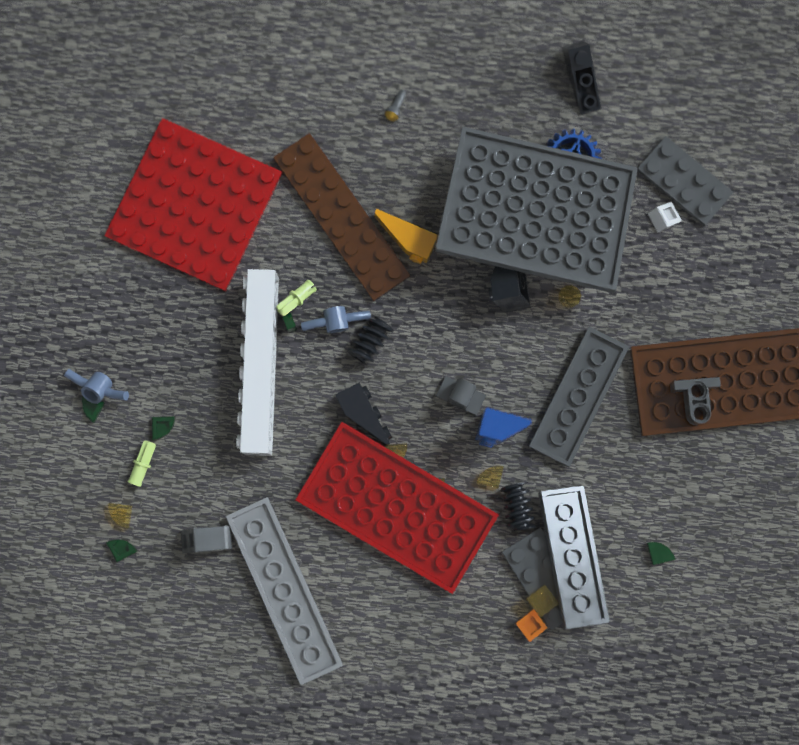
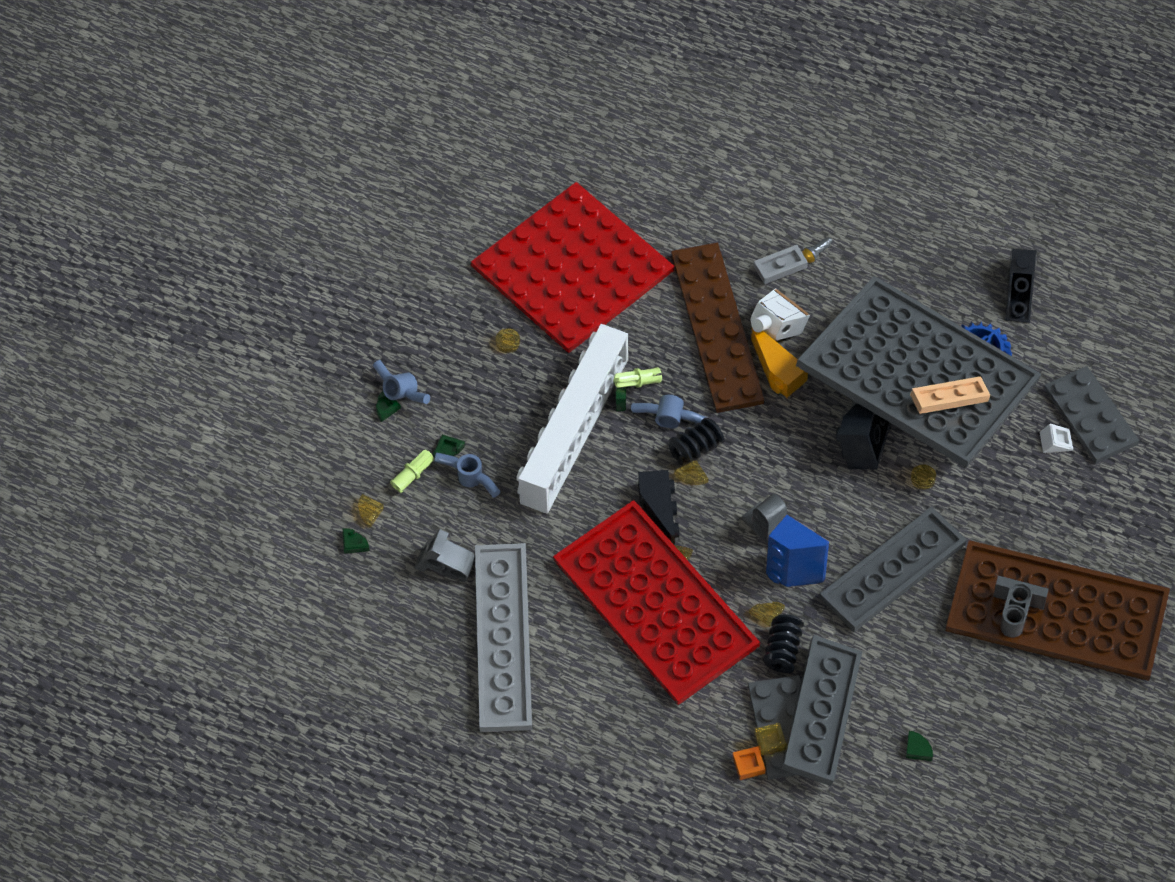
camera: 25 degrees right, 25 degrees down
(169, 301) = (507, 340): none -> clear yellow tile
(180, 443) = (469, 479): none -> sand blue piece
(372, 134) = (780, 264): none -> light grey plate
(377, 370) = (692, 474): none -> clear yellow tile
(391, 191) = (778, 316): none -> white torso
(577, 230) = (950, 395): none -> light nougat plate

